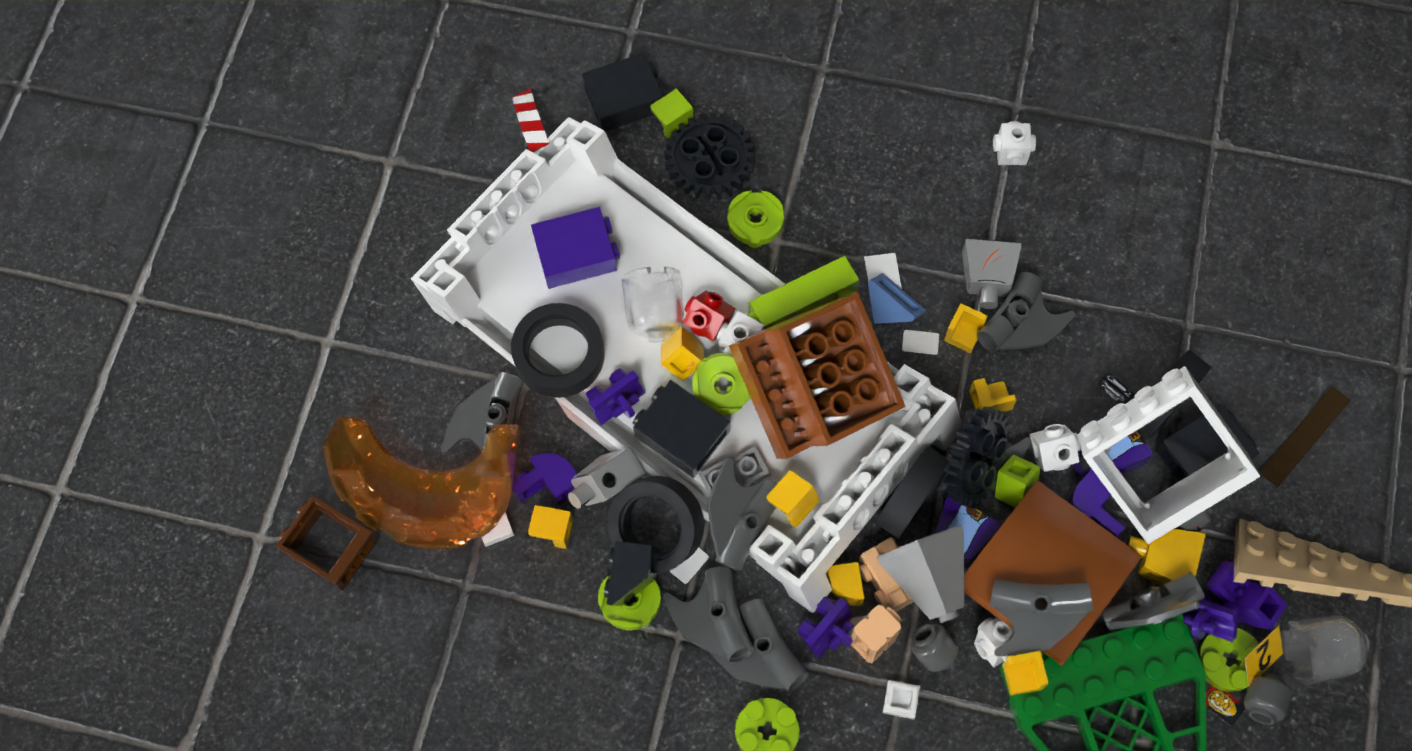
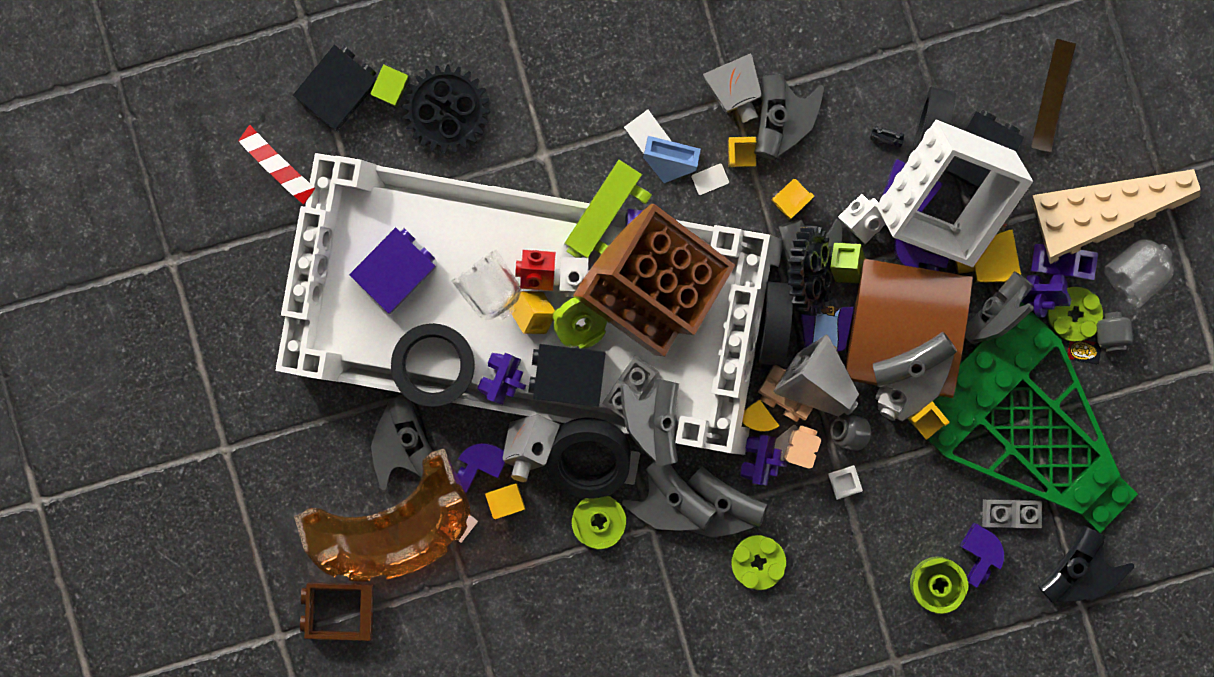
camera: 30 degrees left, 20 degrees up
(632, 570) = (592, 502): black slope -> none
(757, 203) = (509, 130): lime plate -> none
(794, 498) = (687, 386): yellow panel -> none
(1264, 655) = (1097, 301): yellow sticker -> none

